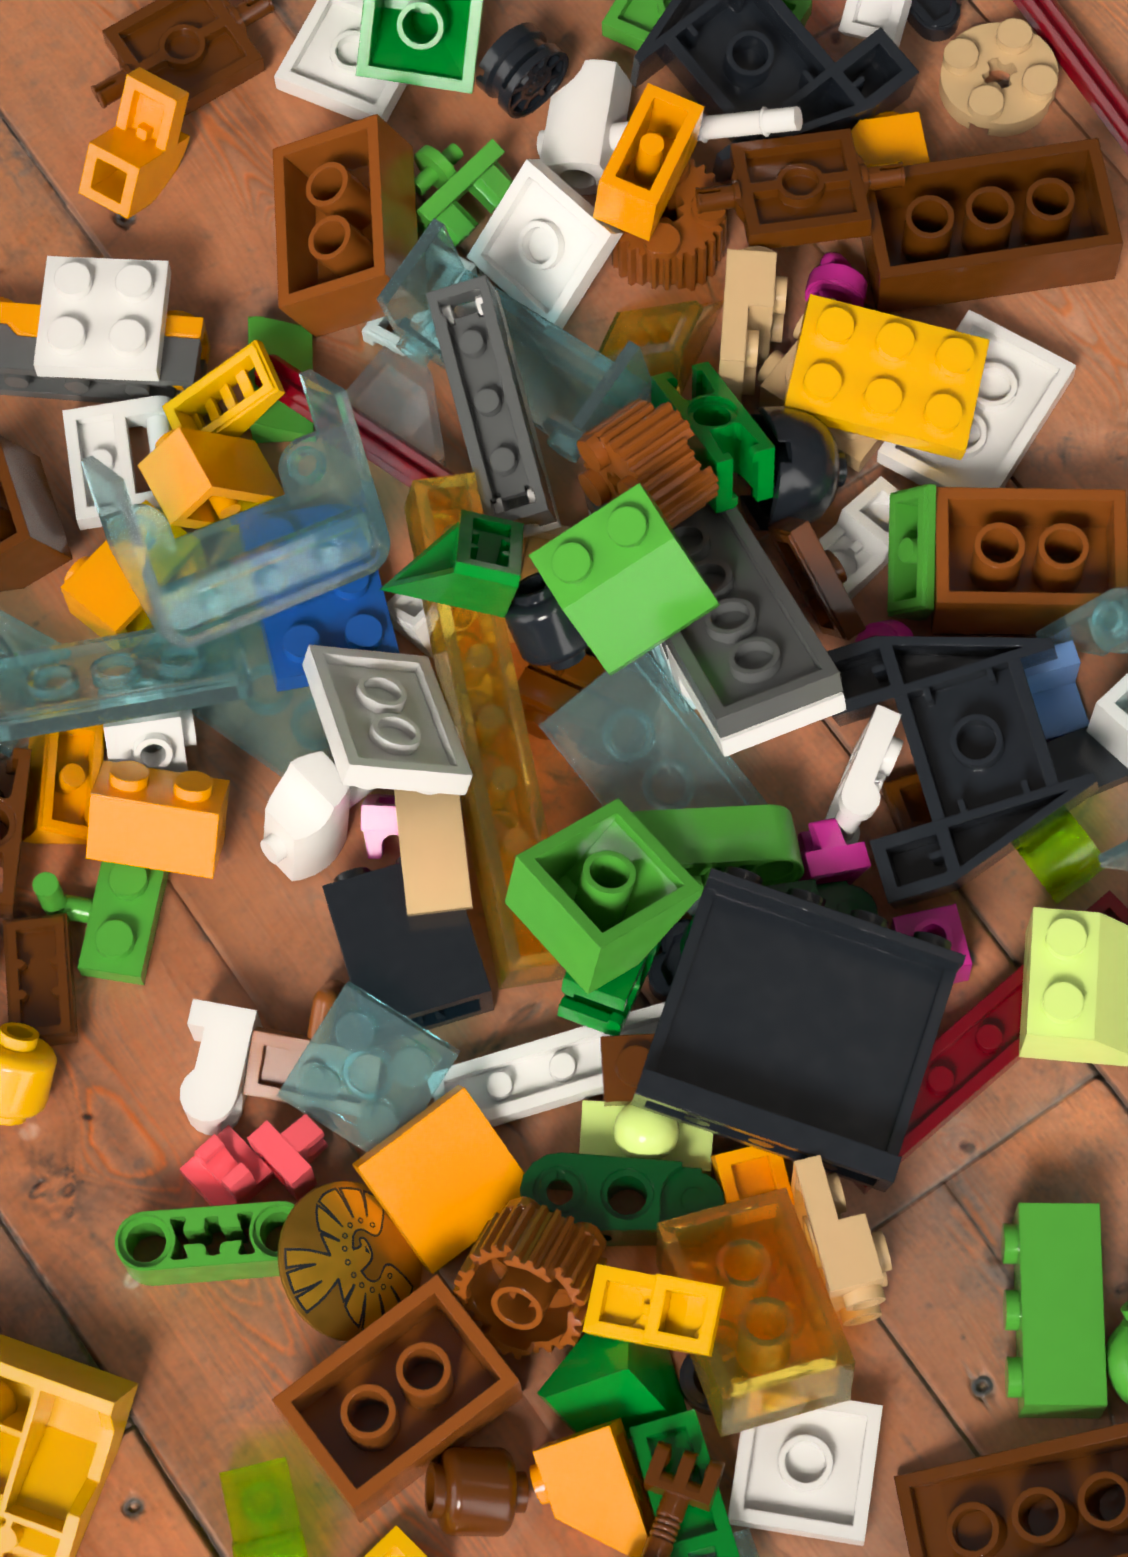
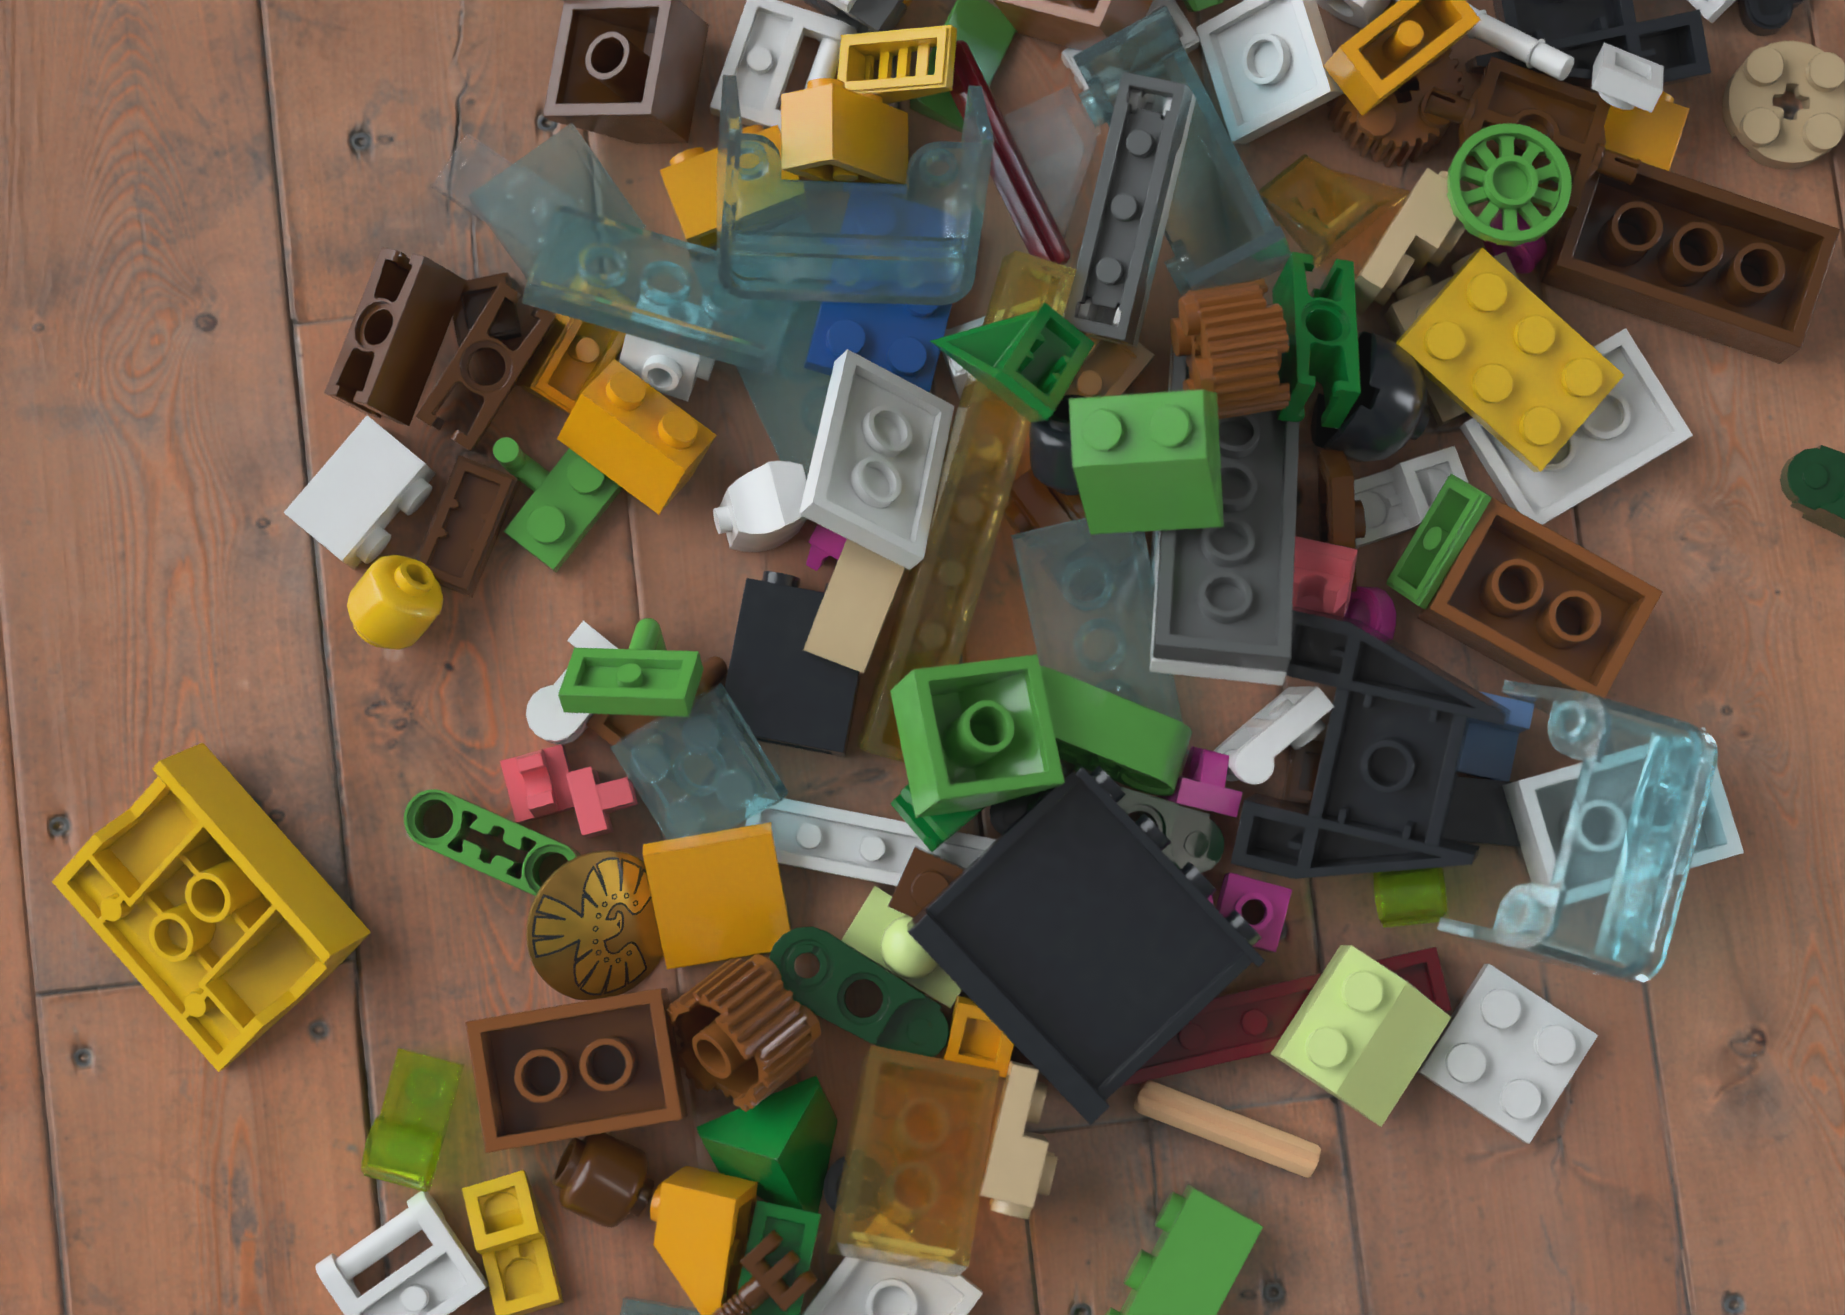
camera: 25 degrees right, 15 degrees up
(265, 1016) = (632, 680): none -> bright green plate
(654, 1310) = (824, 1126): yellow slope -> none
(803, 227) = (1509, 184): none -> bright green wheel
(833, 618) = (1323, 576): none -> coral tile
(853, 105) = (1627, 79): none -> white plate
(1018, 1147) = (1227, 1128): none -> light nougat axle

